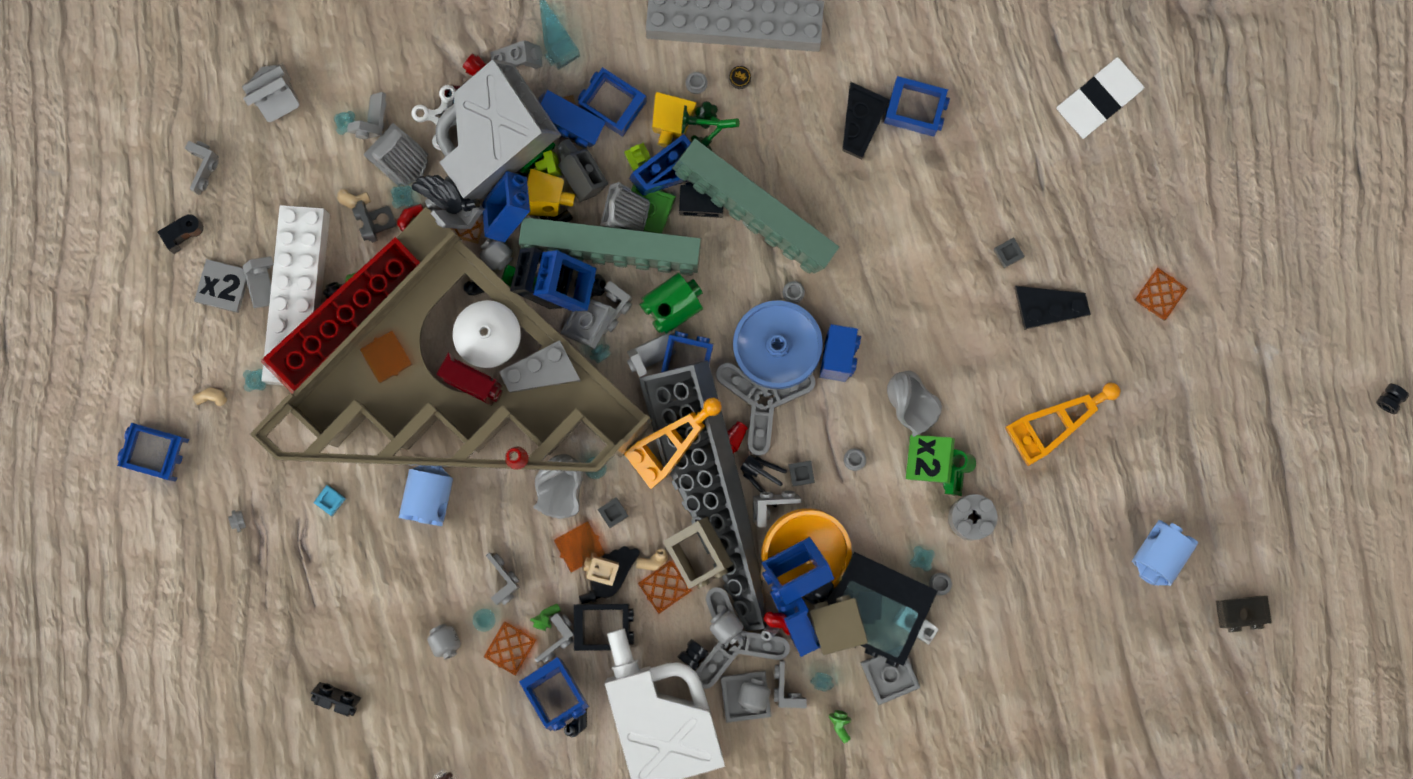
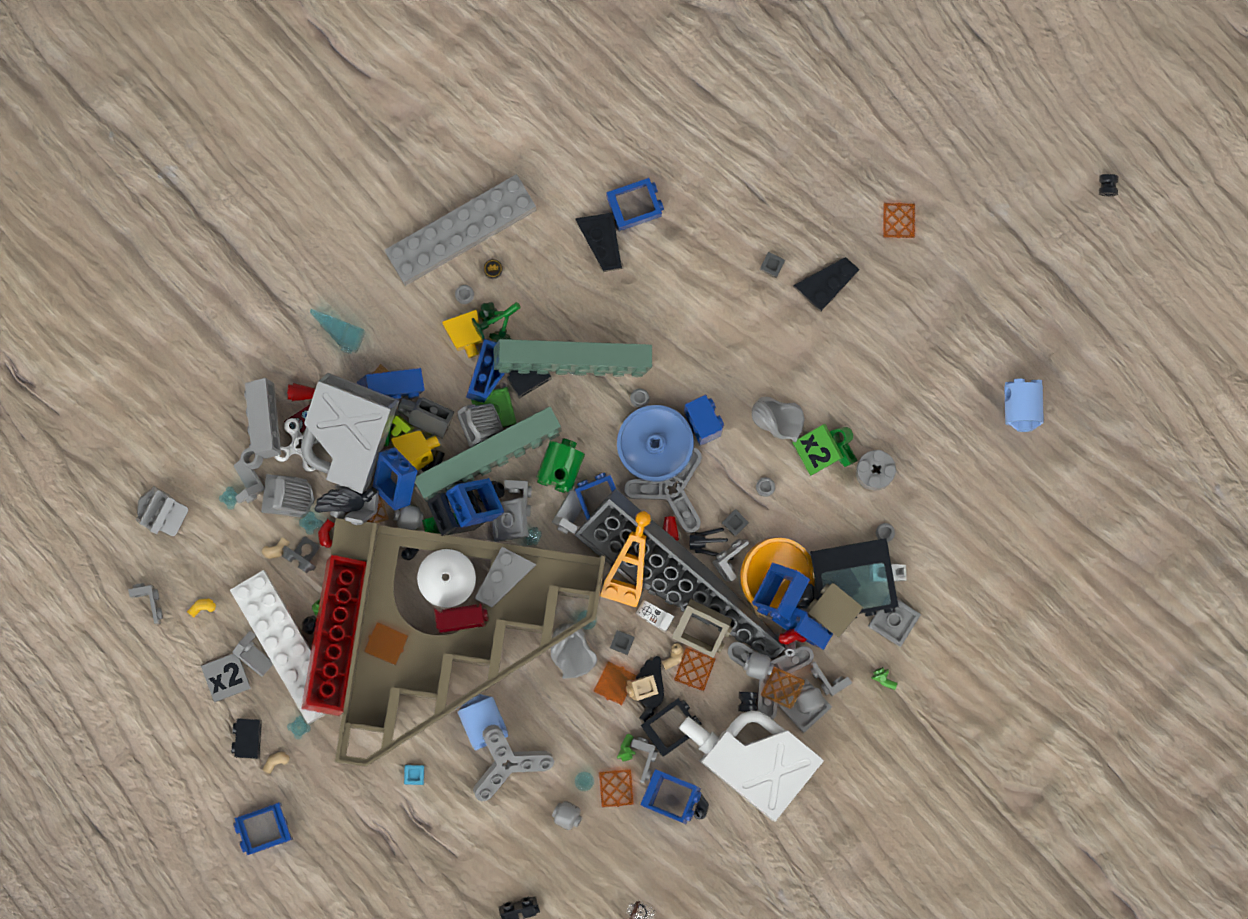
camera: 40 degrees left, 0 degrees up
(179, 231) = (167, 657): black leg -> none
(199, 357) = (247, 739): none -> black brick
(237, 521) = (359, 834): light grey plate -> none
(248, 203) = (201, 604): none -> yellow arm
(421, 71) = (262, 422): none -> light grey hinge
(421, 536) = (498, 772): none -> light grey piece
(505, 595) = (587, 752): light grey bracket -> none
(520, 54) = (321, 365): light grey bracket -> none
(521, 460) = (536, 653): red cone -> none
(632, 111) = (433, 348): blue window -> none
(637, 155) = (460, 377): lime tile -> none
(662, 509) = (655, 615): none -> white leg
(743, 681) = (769, 682): none -> clear orange window
(822, 682) = (850, 657): clear light blue plate -> none
(918, 553) = (859, 528): clear light blue plate -> none
(1027, 440) = (876, 389): light orange plate -> none
(1100, 98) = (760, 107): white sticker -> none
(1257, 610) = (1113, 397): clear smoke brick -> none

